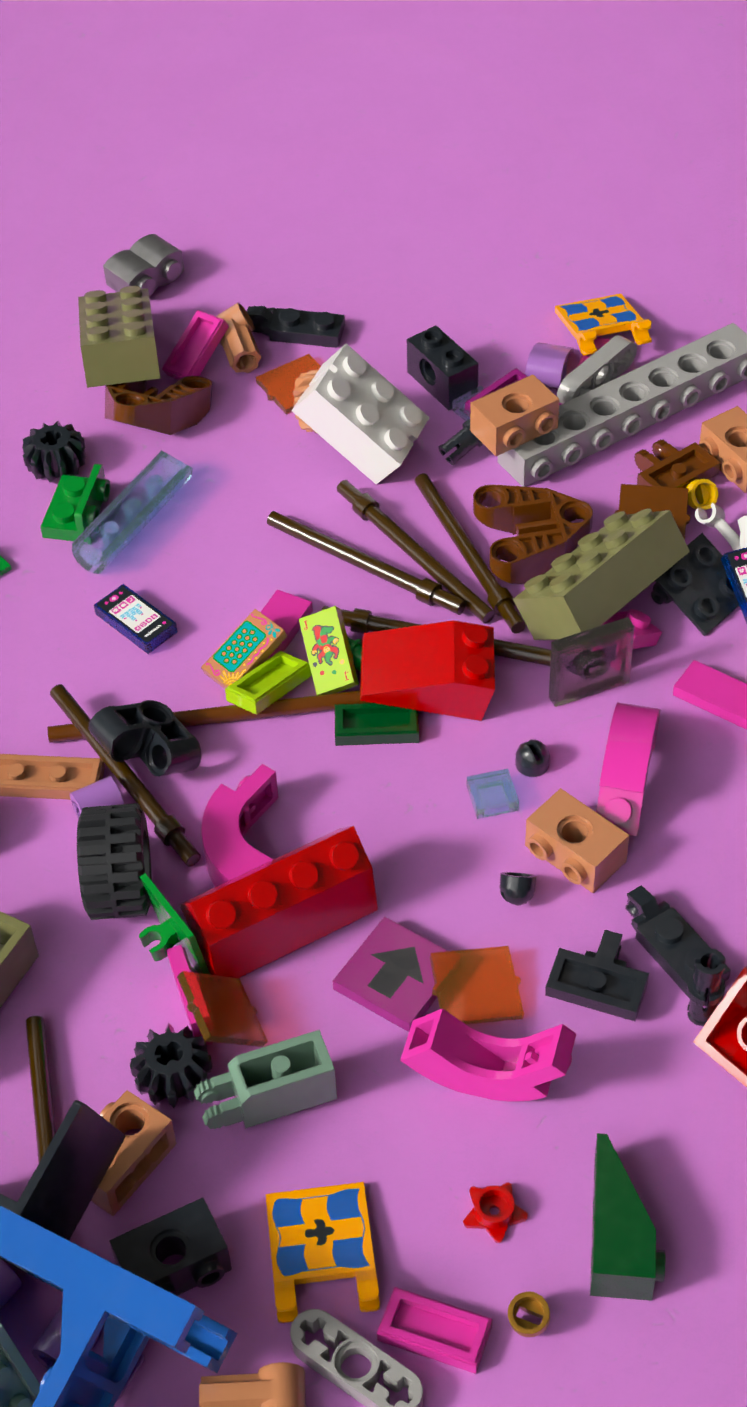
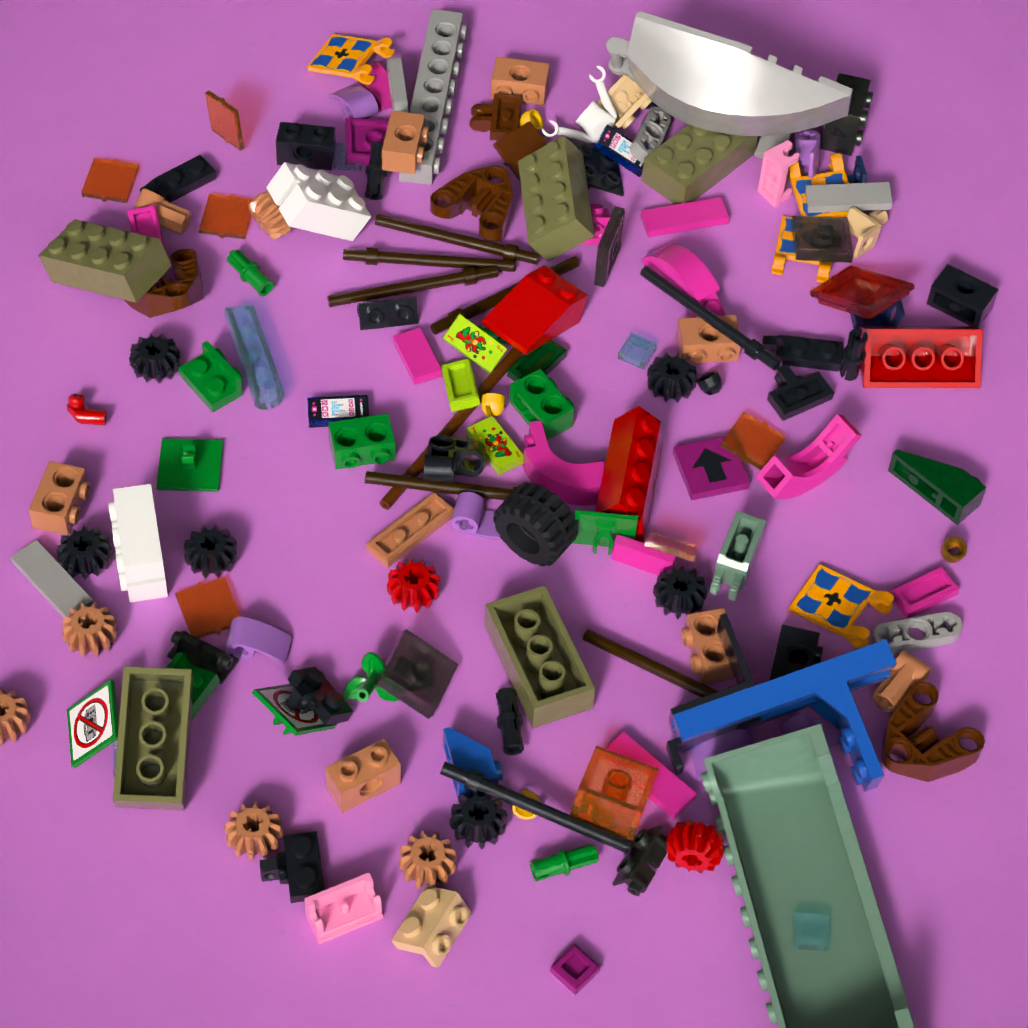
camera: 55 degrees left, 5 degrees up
(106, 658) = (361, 441): none -> green brick
(146, 264) = (35, 211): flat silver brick -> none
(222, 762) = (500, 449): none -> lime tile
(239, 442) = (250, 272): none -> green axle
(244, 649) = (428, 379): tile -> none
(248, 286) = (110, 180): none -> clear orange piece
(272, 725) = (492, 404): none -> yellow hinge
(303, 566) = (387, 313): none -> black hinge
(313, 763) = (540, 400): none -> green brick
(394, 294) = (224, 120): none -> clear orange piece
(481, 846) = (671, 377): none -> black gear
(494, 1197) = (881, 519): red plate -> none
(525, 759) = (631, 319): black hinge -> none
(590, 880) = (752, 348): none -> black bar

